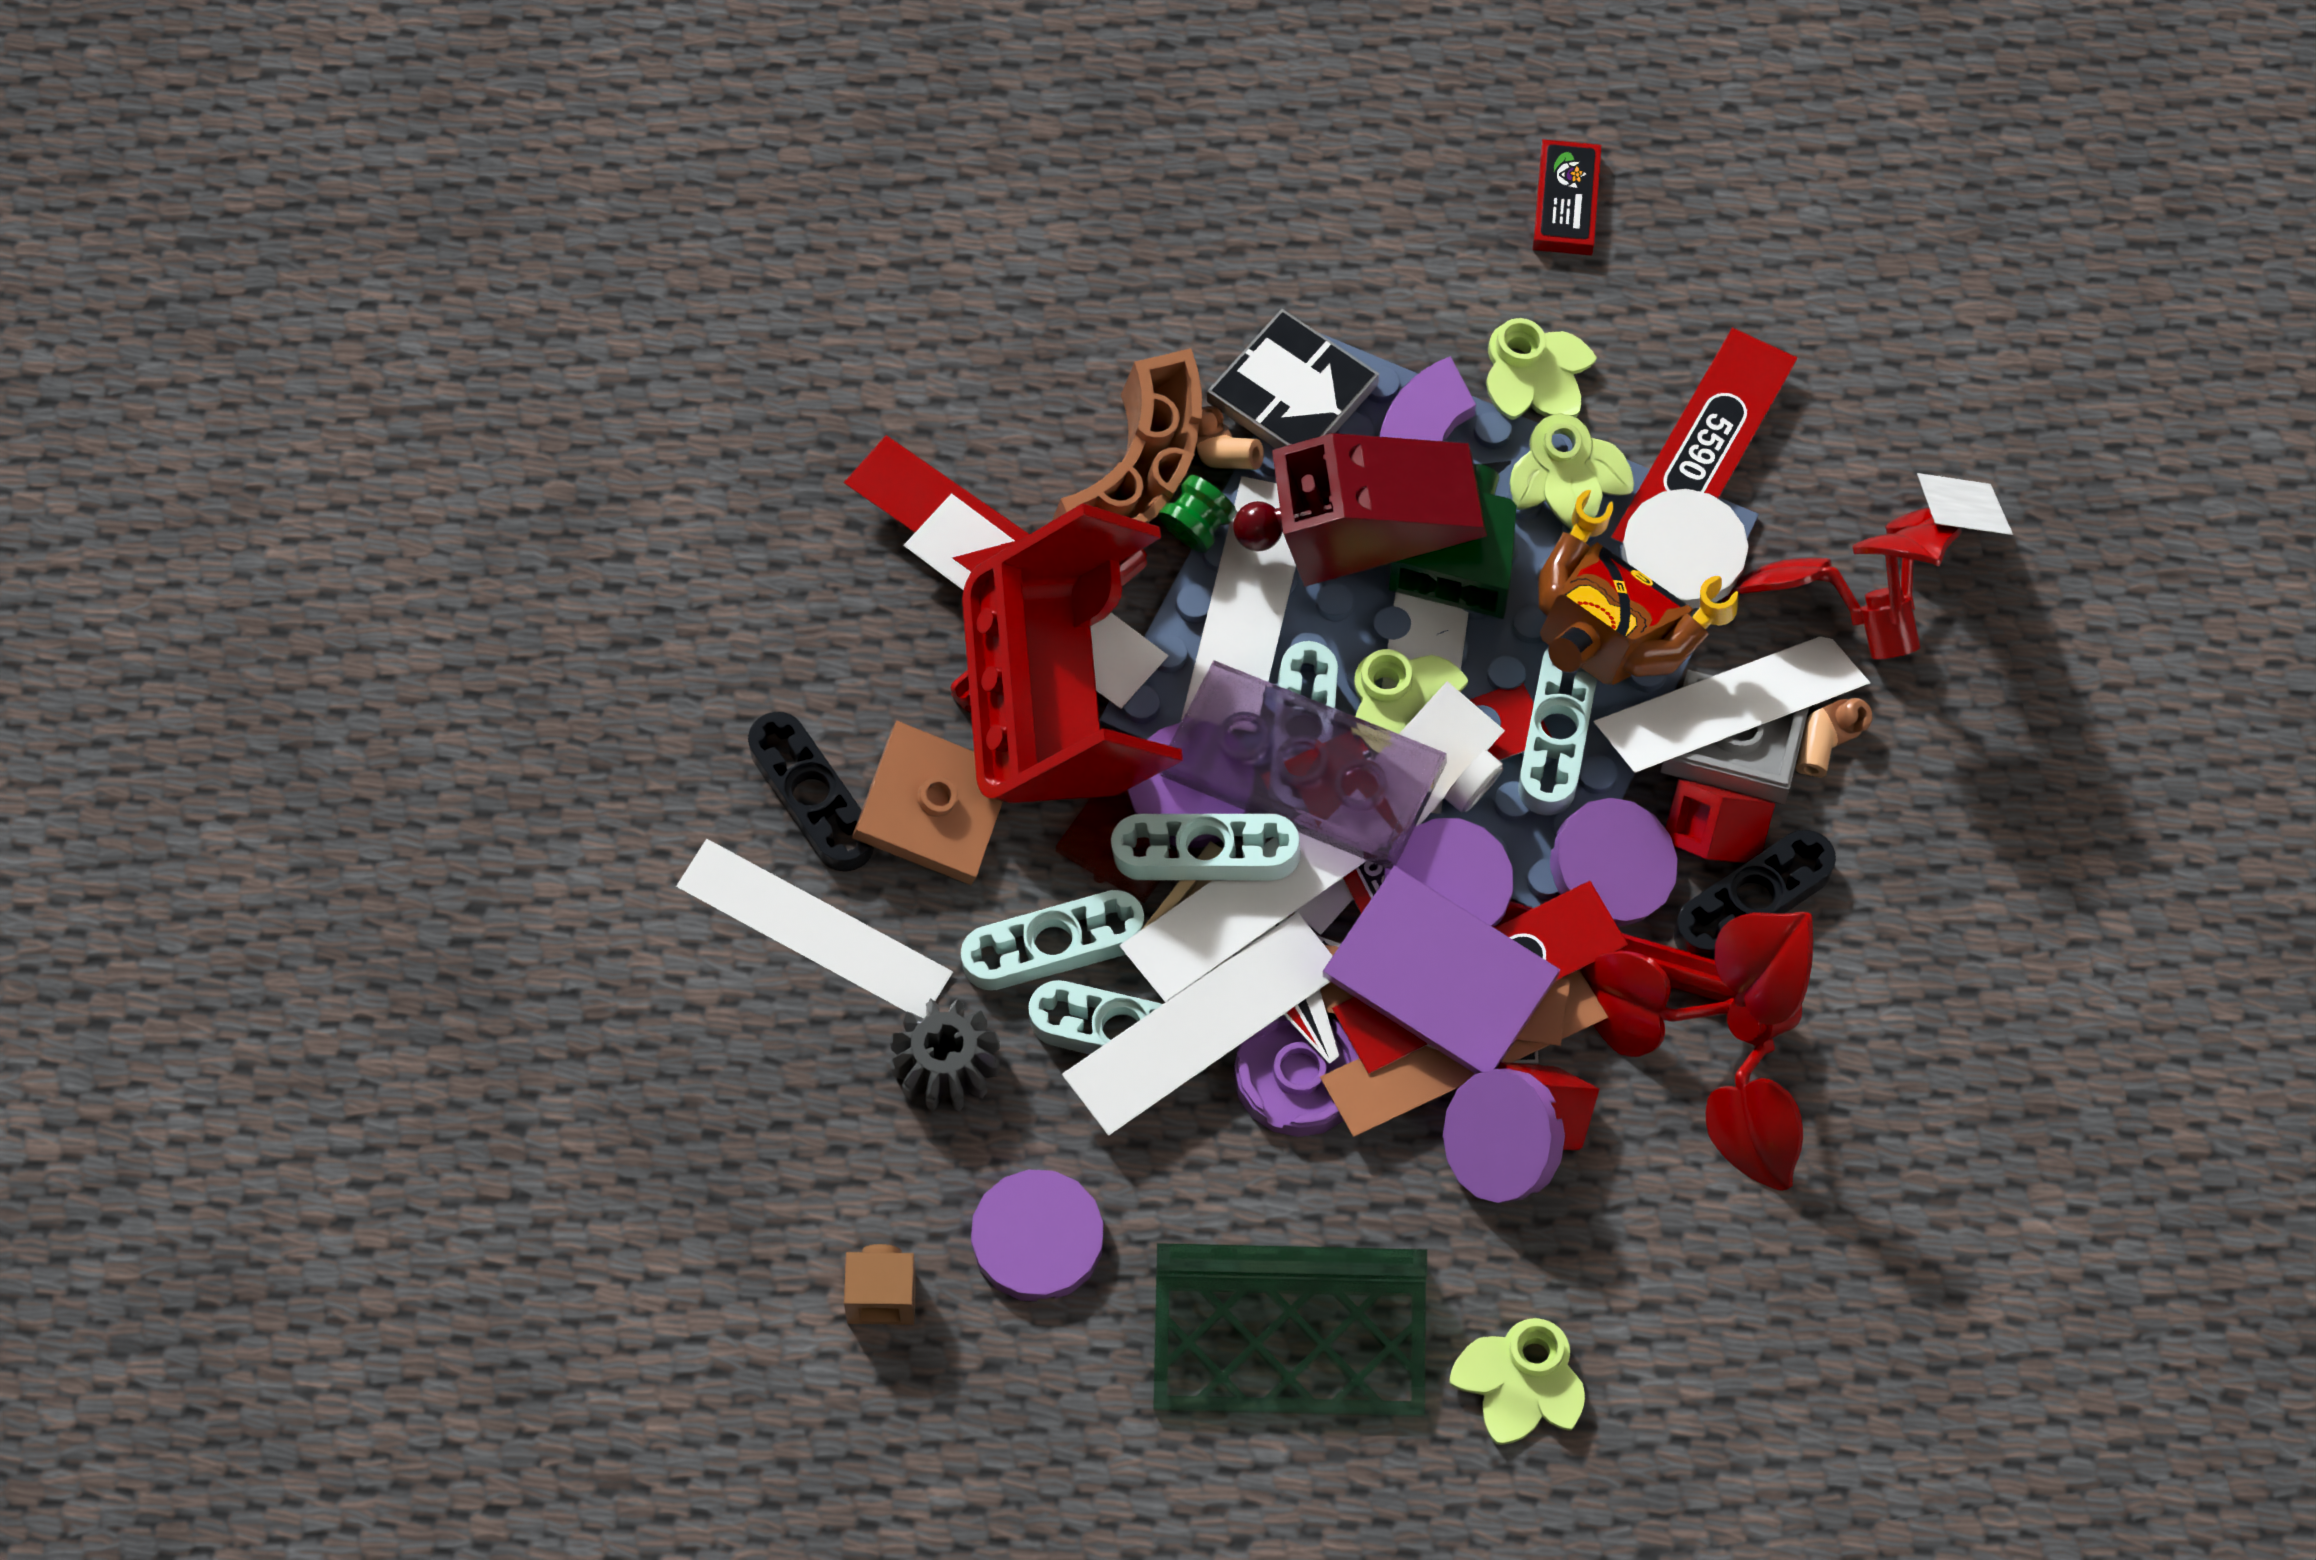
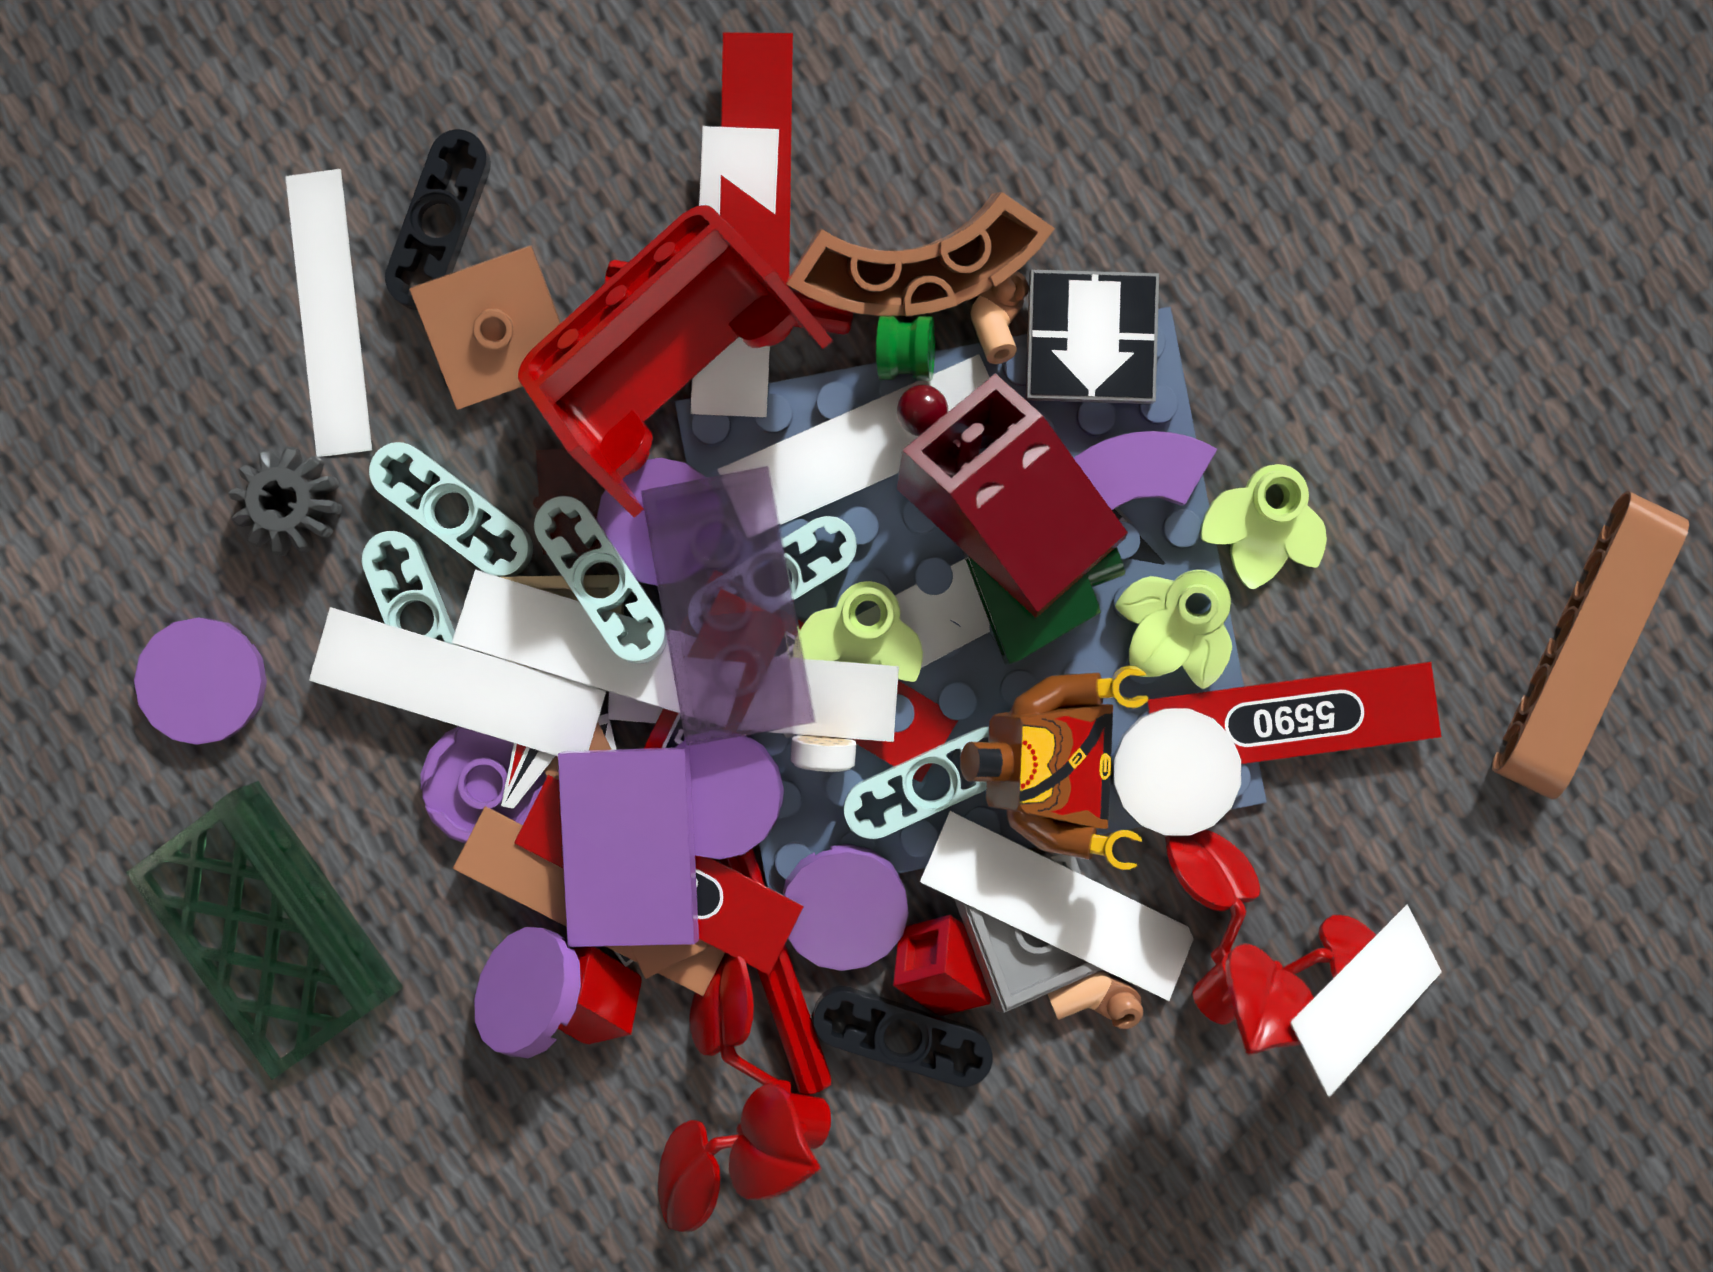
camera: 55 degrees right, 25 degrees up
(880, 1286) = (59, 596): medium nougat plate -> none
(1516, 1389) = (347, 1135): yellowish green plate -> none
(1567, 197) = (1465, 429): tile -> none
(1805, 217) = (1592, 647): none -> nougat beam

